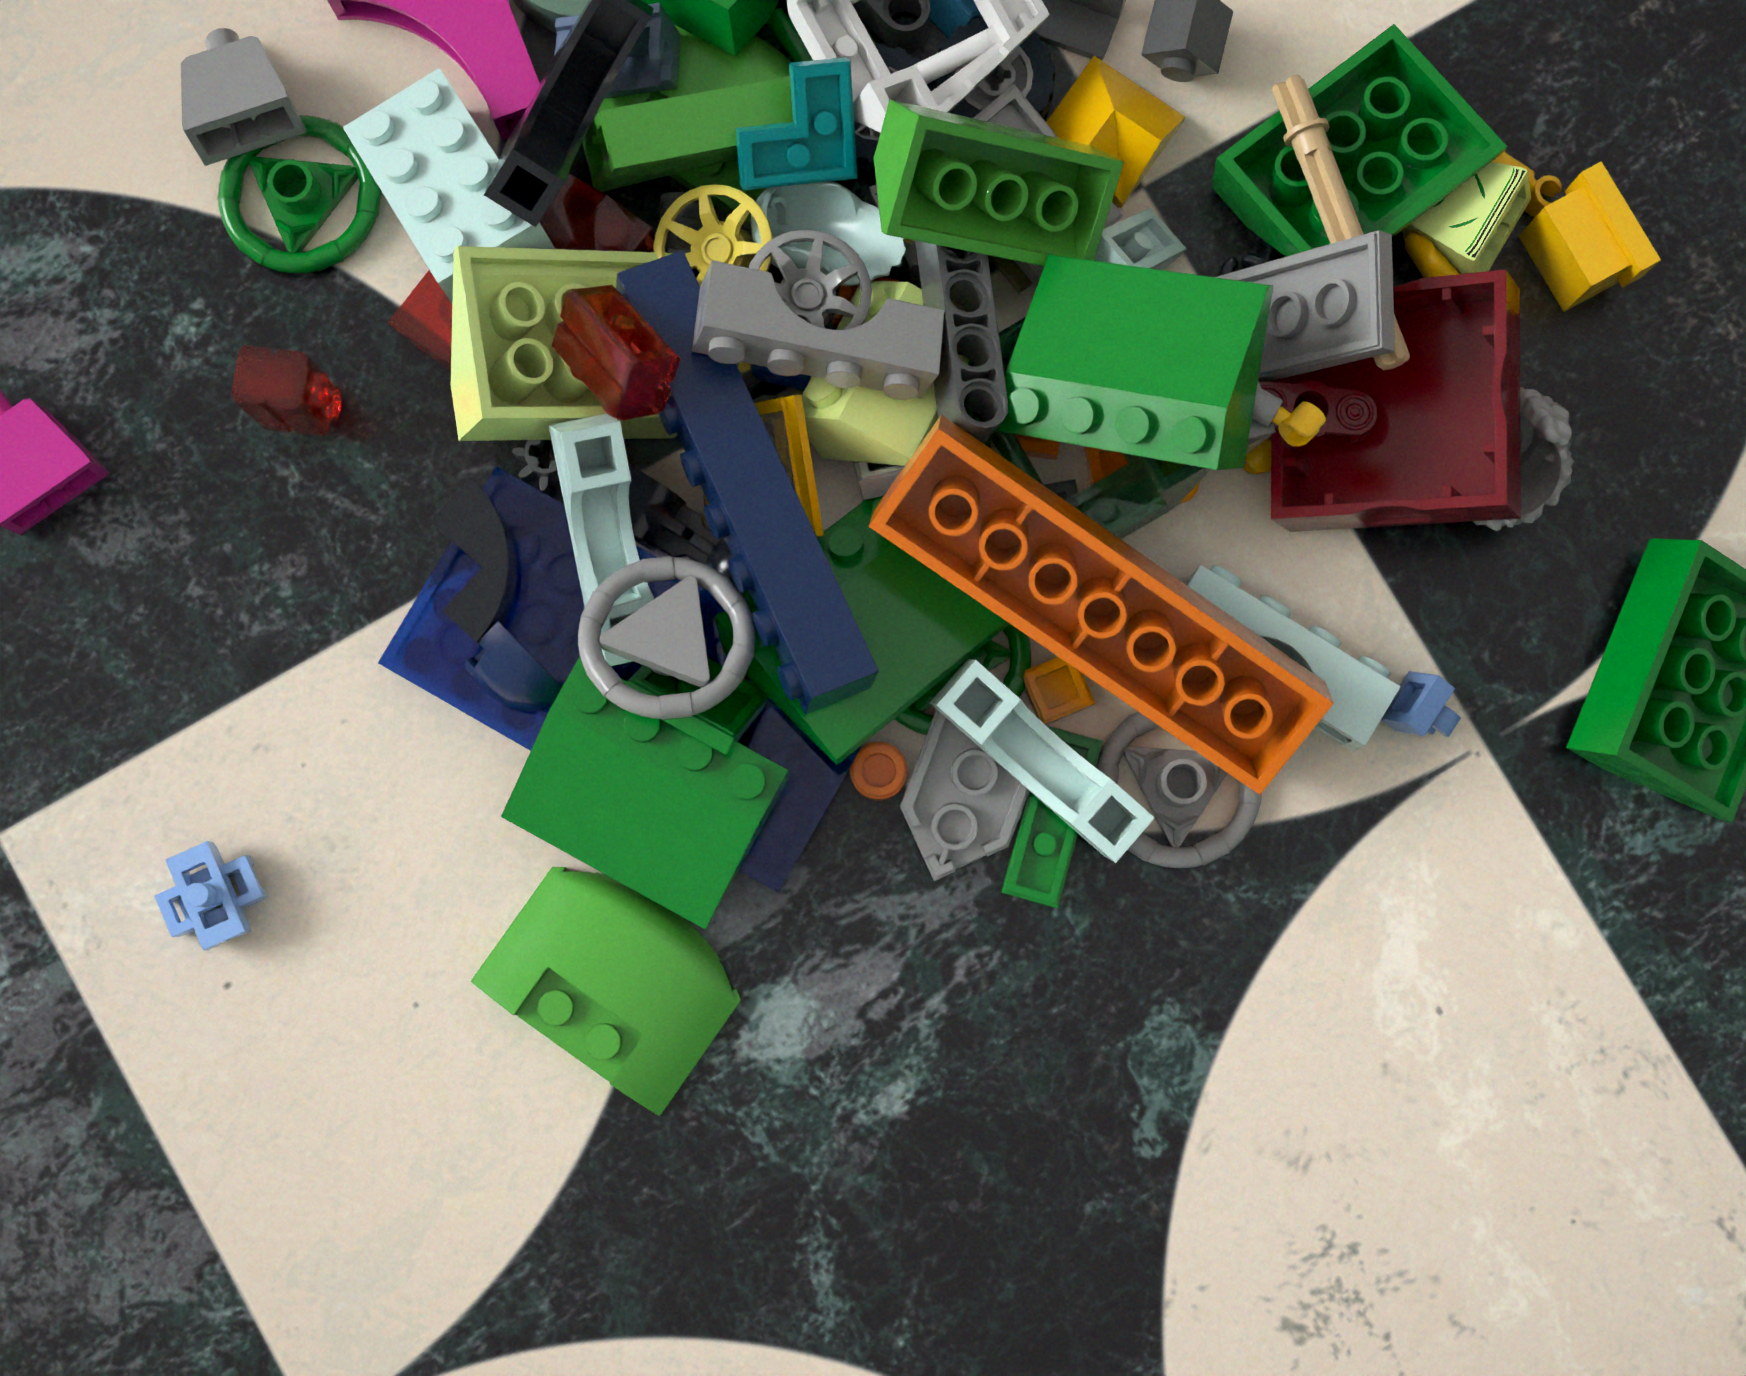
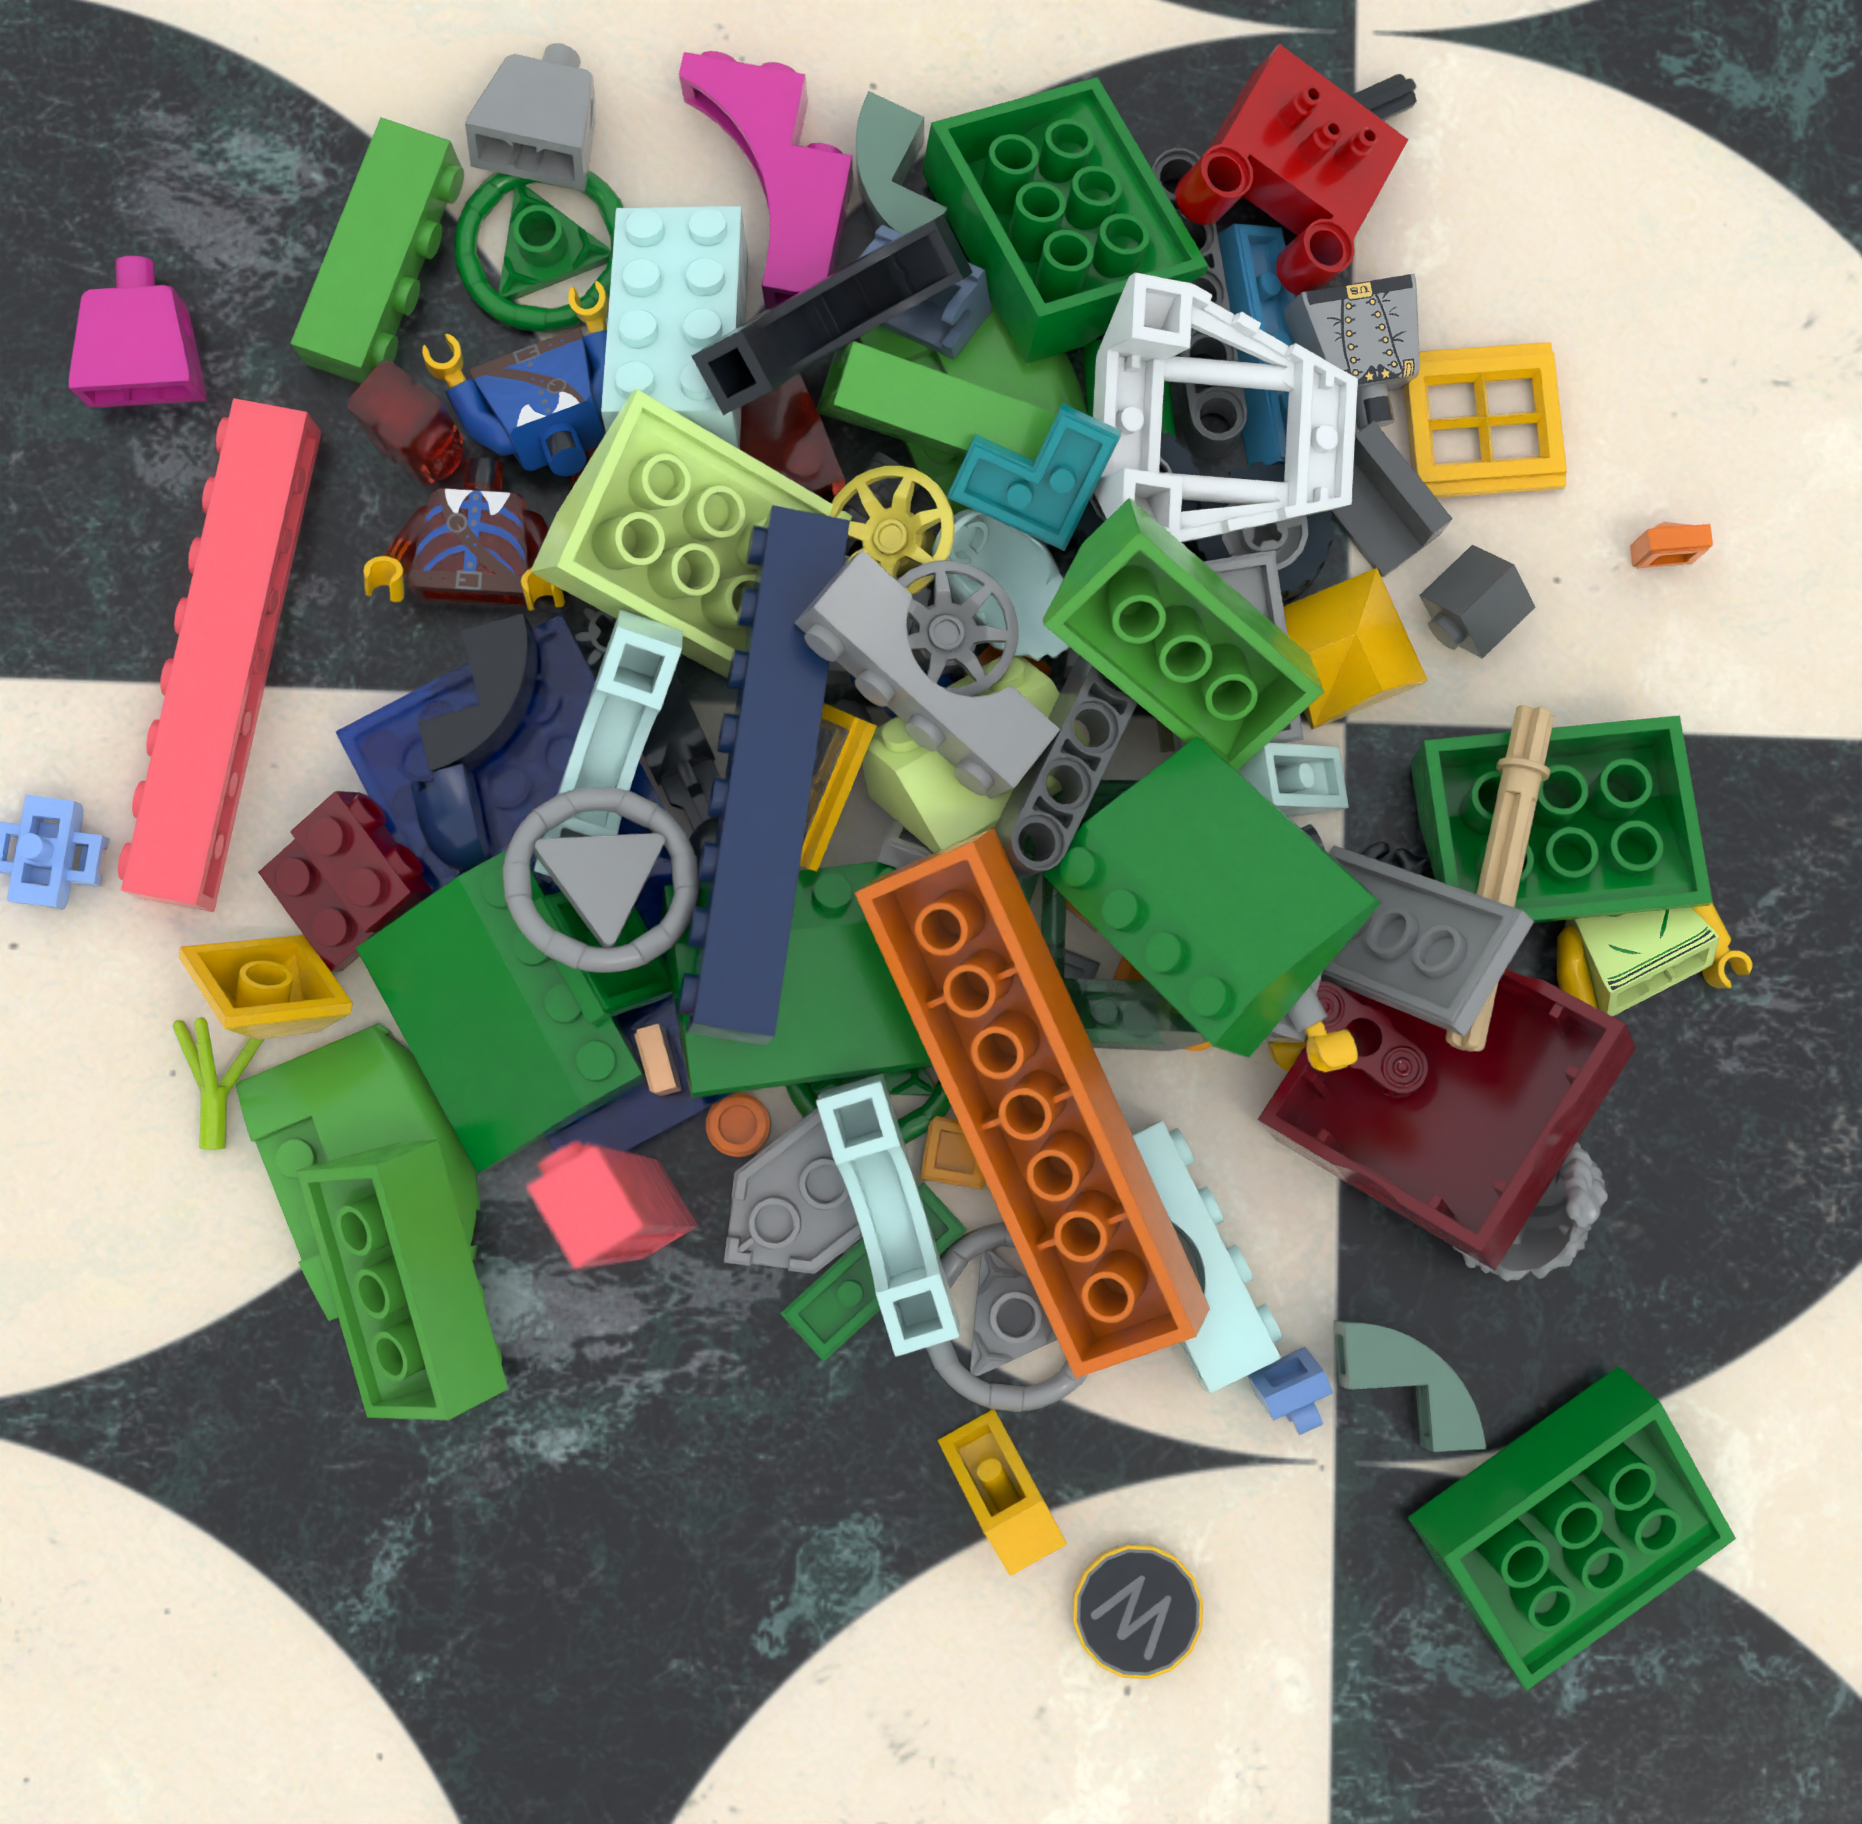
camera: 30 degrees right, 0 degrees up
(175, 275) = (378, 252): none -> bright green brick
(250, 660) = (220, 656): none -> coral brick
(377, 308) = (538, 399): none -> blue torso
(394, 457) = (468, 547): none -> torso
(446, 990) = (213, 1095): none -> lime plant
(453, 886) = (267, 986): none -> yellow slope
(457, 769) = (344, 877): none -> dark red plate
(615, 352) = (720, 580): clear red brick -> none
(701, 1046) = (403, 1281): none -> bright green slope
(790, 755) = (657, 1060): none -> light nougat tile
(844, 859) = (609, 1204): none -> coral brick
(1255, 919) = (1002, 1493): none -> yellow slope
(1410, 945) = (1137, 1611): none -> black tile
(1477, 637) = (1387, 1358): none -> sand green brick
(1588, 240) = (1740, 1040): yellow plate -> none

